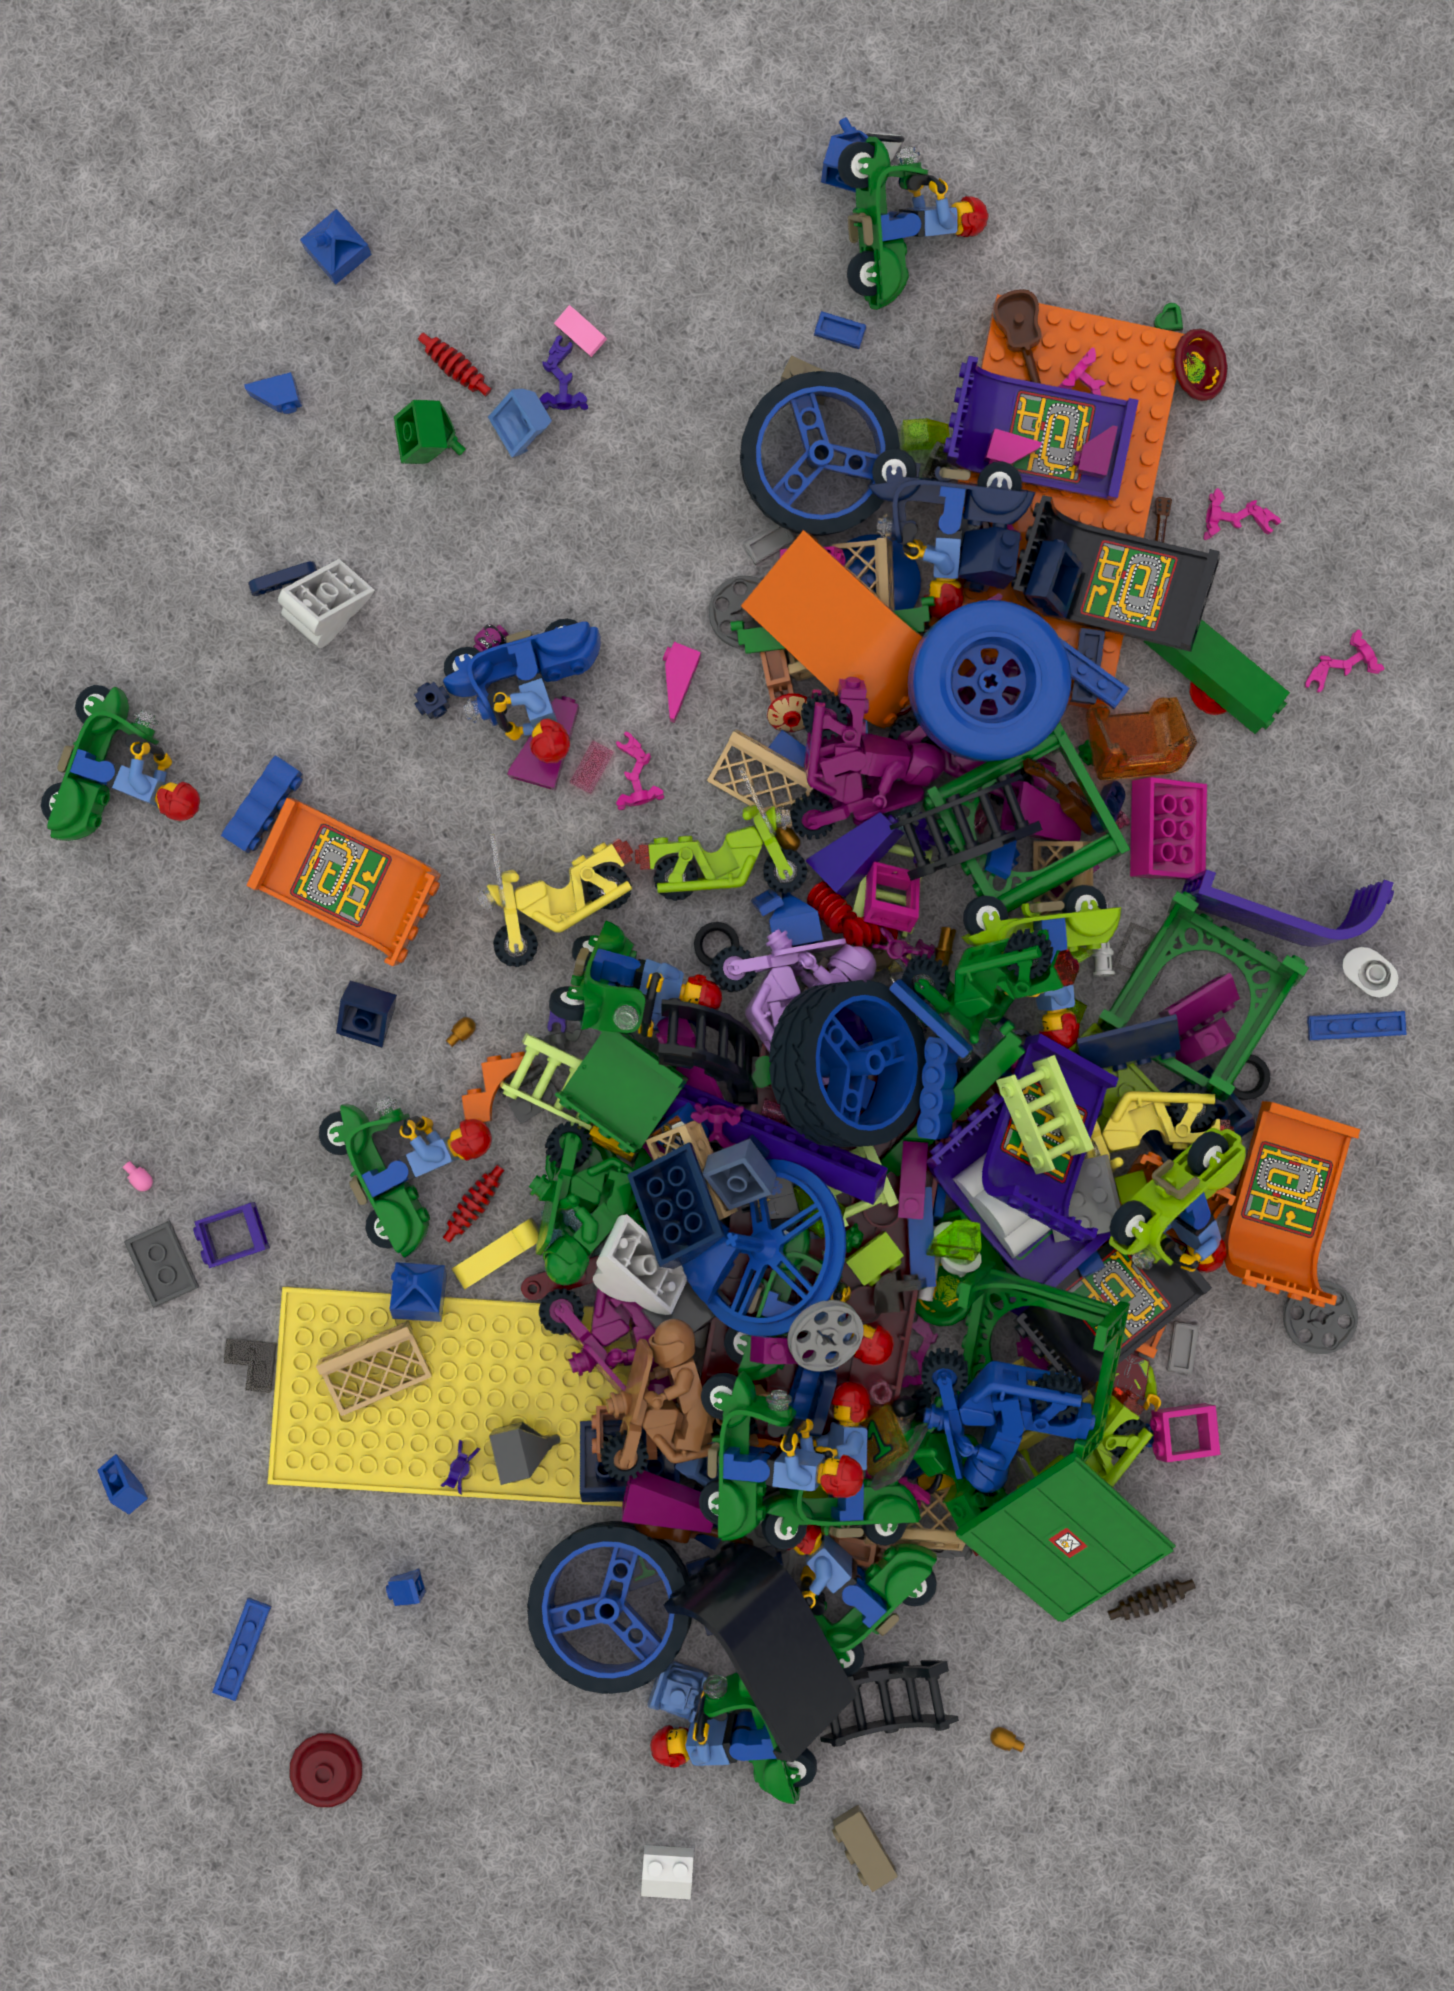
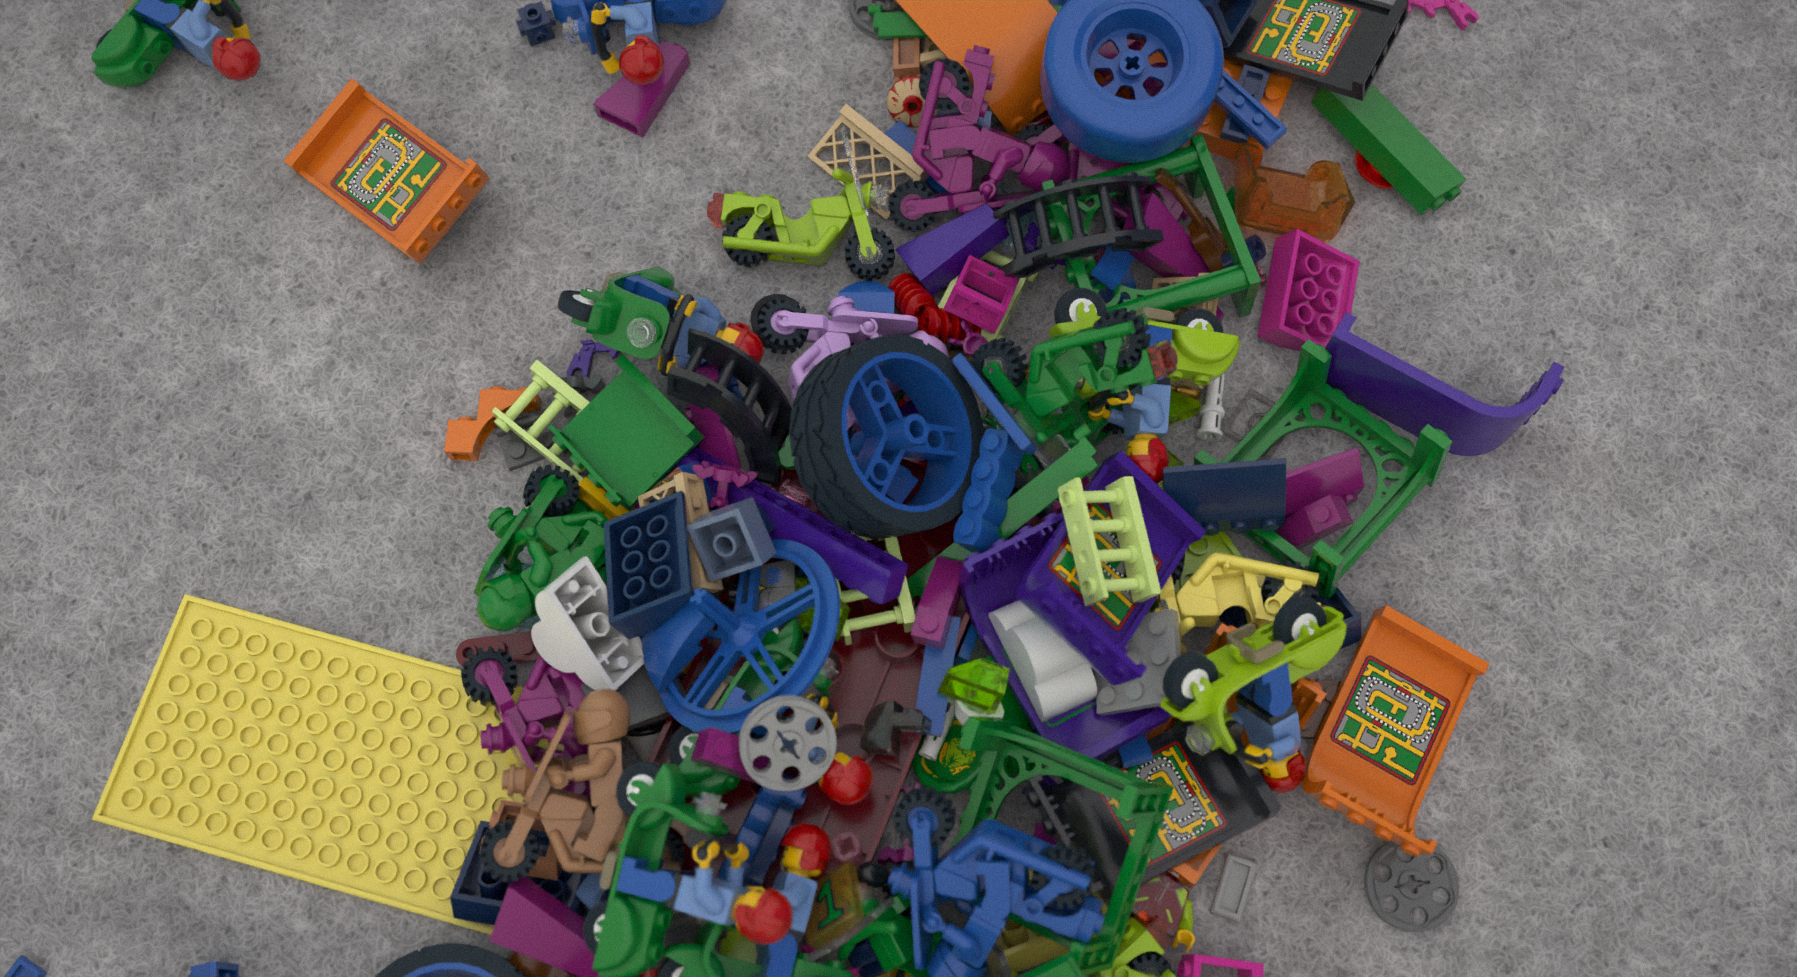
camera: 20 degrees right, 15 degrees down
(138, 1177) = (67, 441): bright pink cylinder -> none
(161, 1264) = (59, 542): dark grey tile -> none
(254, 1225) = (175, 522): dark purple window -> none
(258, 1357) = (130, 671): clear smoke plate -> none
(262, 804) = (315, 94): blue brick -> none
(365, 1013) = (370, 317): dark blue slope -> none
(365, 1349) = (252, 680): tan fence -> none
(397, 1213) = (337, 497): piece -> none
(418, 1292) = (333, 625): blue piece -> none
(459, 1468) = (316, 844): dark purple piece -> none
(461, 1031) = (472, 356): pearl gold cylinder -> none
(473, 1203) = (429, 544): red piece -> none
(497, 1253) = (434, 605): light yellow beam -> none
(519, 1450) = (393, 835): dark grey piece -> none
(552, 907) = (606, 244): light yellow piece -> none
(591, 767) = (687, 121): clear pink tile -> none
(640, 796) = (731, 156): dark pink piece -> none
(680, 669) = (805, 42): dark pink slope -> none
(767, 902) = (840, 281): blue tile -> none
(787, 838) = (881, 223): pearl gold cylinder -> none
(853, 1238) = (853, 658): green plant -> none
(874, 1259) = (874, 685): lime brick -> none
(1264, 1075) = (1381, 583): black tyre -> none
(1356, 1025) = (1499, 550): blue tile -> none
(1364, 653) = (1554, 159): dark pink piece -> none
(1370, 971) = (1523, 488): white piece -> none

